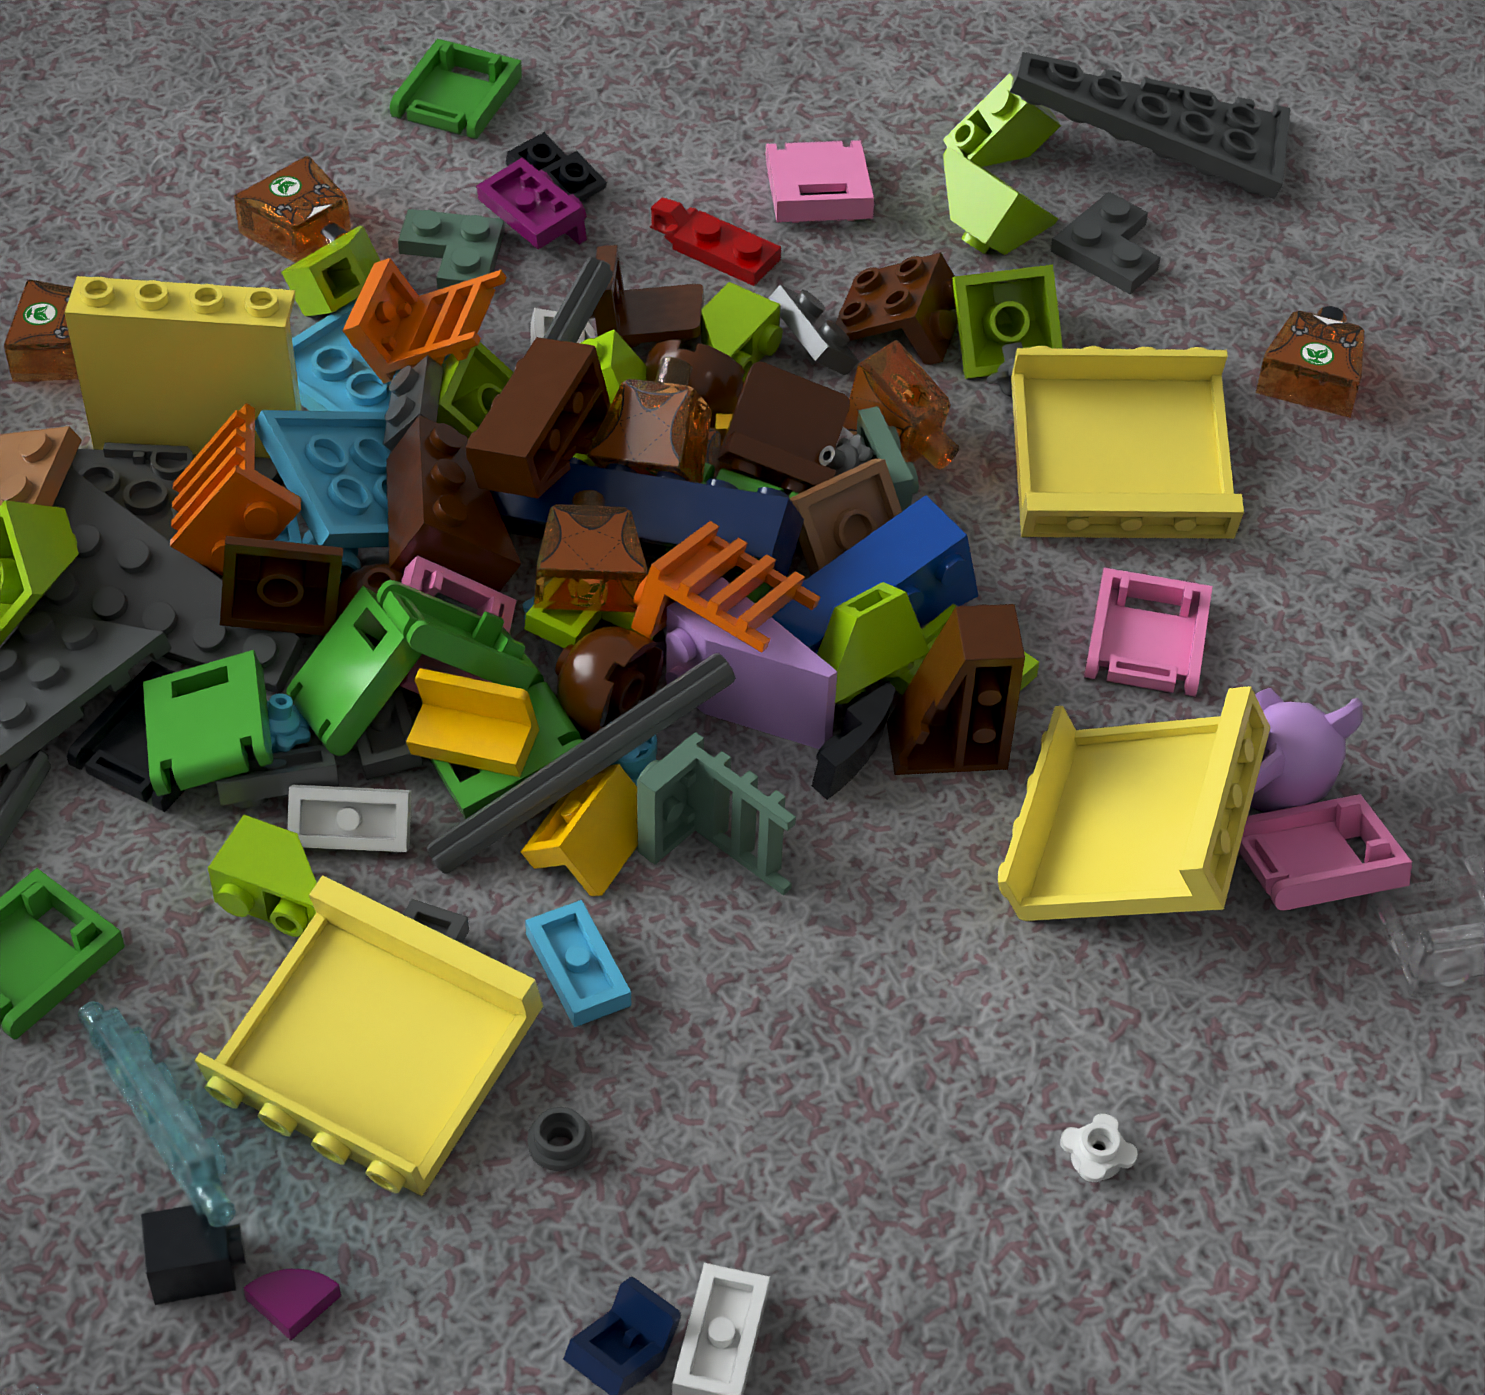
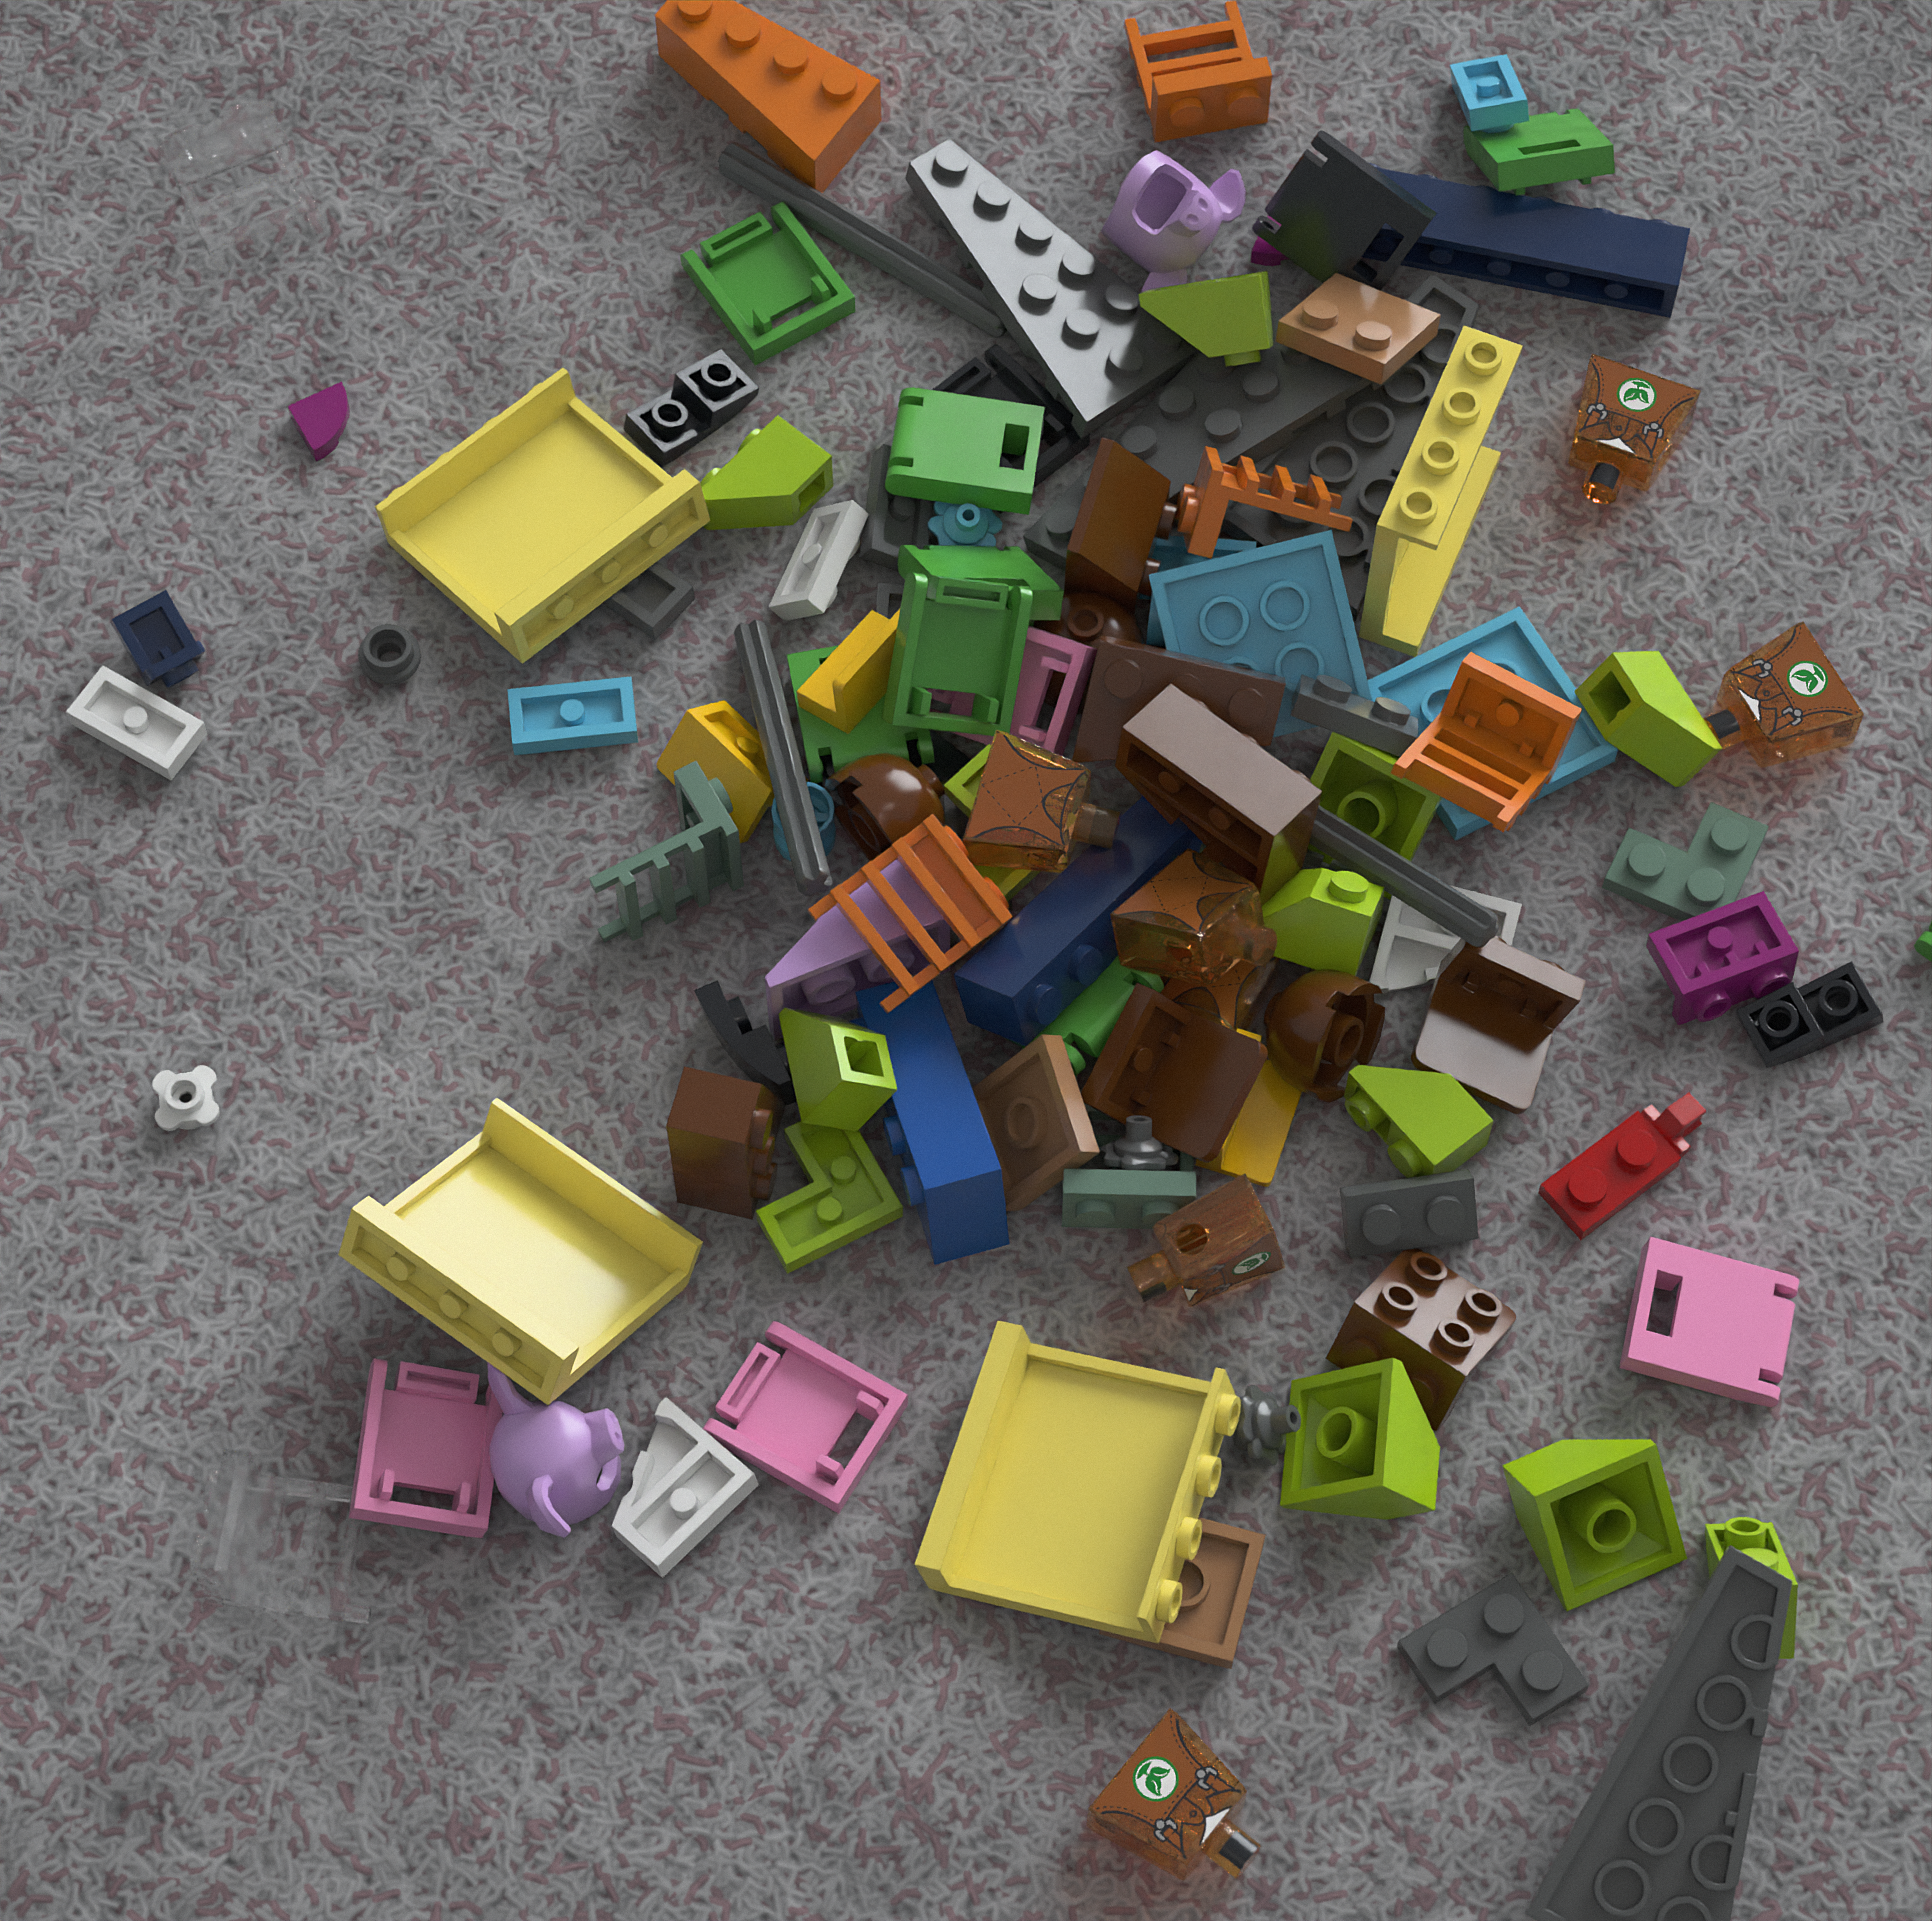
camera: 110 degrees right, 15 degrees up
(166, 1120) = (519, 329): clear light blue plate -> none
(189, 1255) = (387, 345): black brick -> none
(190, 974) = (698, 405): none -> black slope
(1247, 663) = (679, 1490): none -> white wing

